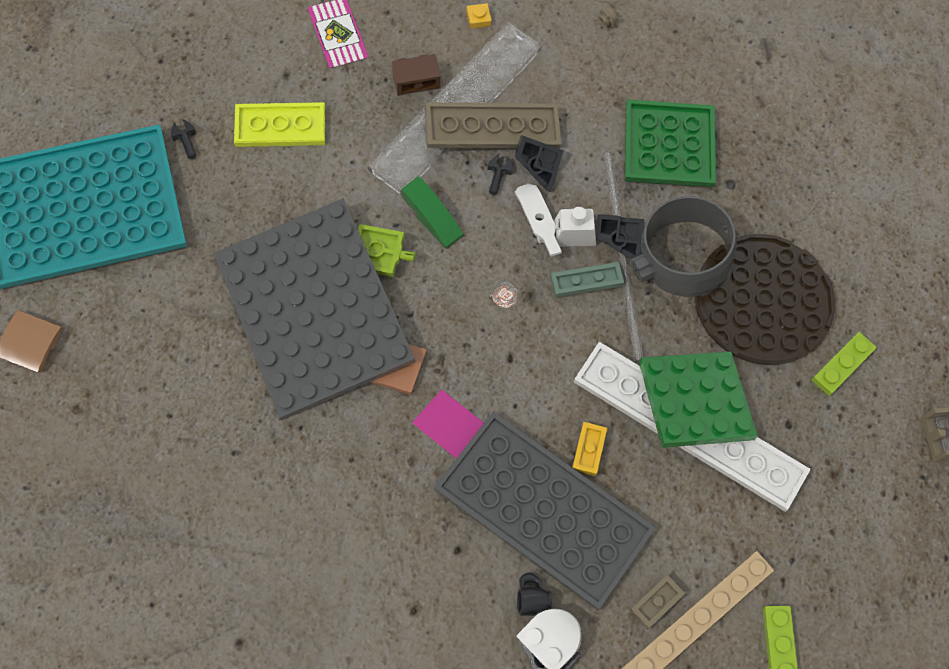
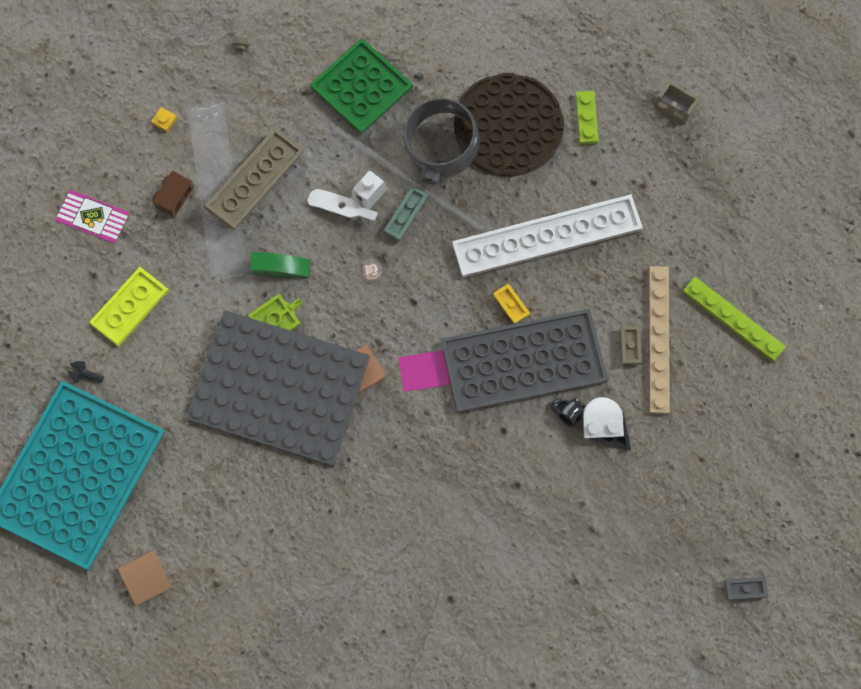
camera: 45 degrees left, 5 degrees up
(498, 173) = (287, 203): black bar -> none
(539, 160) = (303, 172): black slope -> none
(620, 233) = (397, 168): black slope -> none
(697, 399) = (536, 218): green plate -> none

